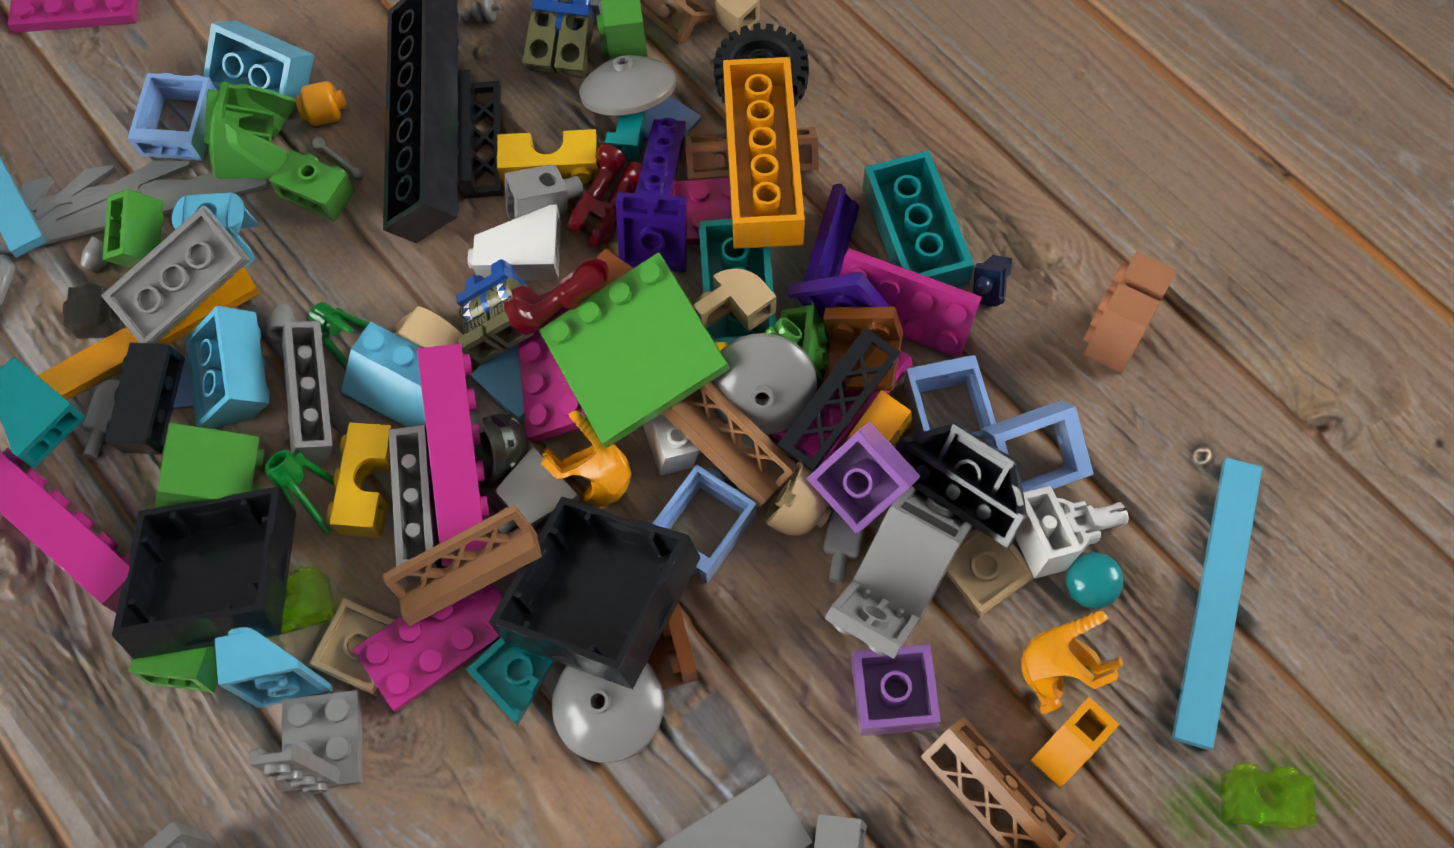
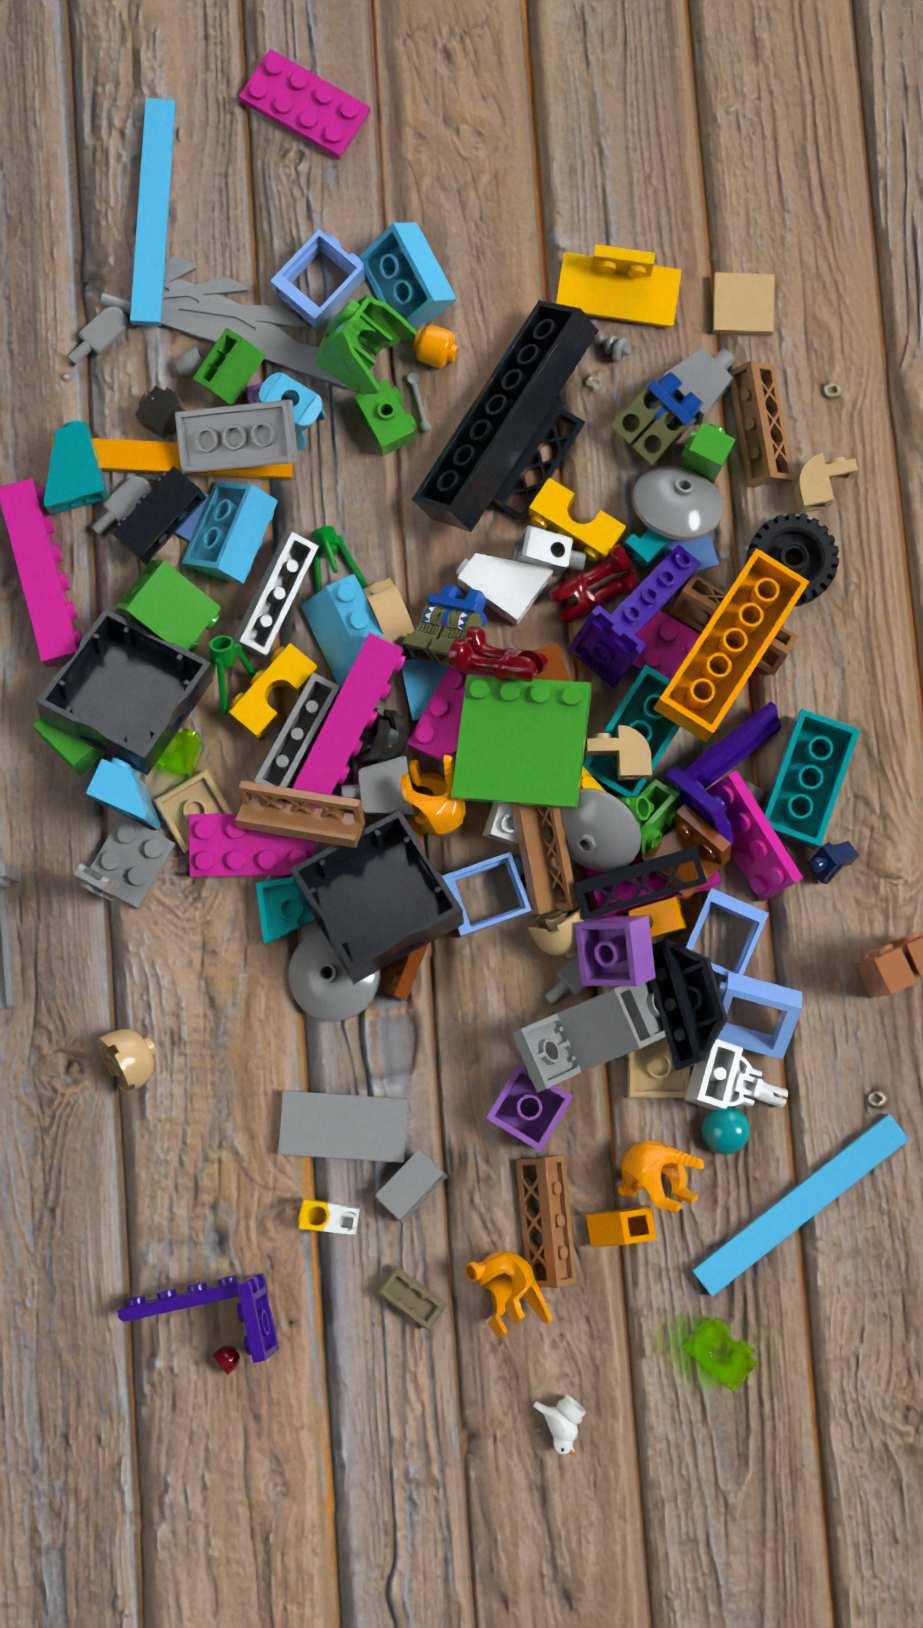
camera: 30 degrees right, 15 degrees up
(279, 315) = (292, 519): light grey hose -> none

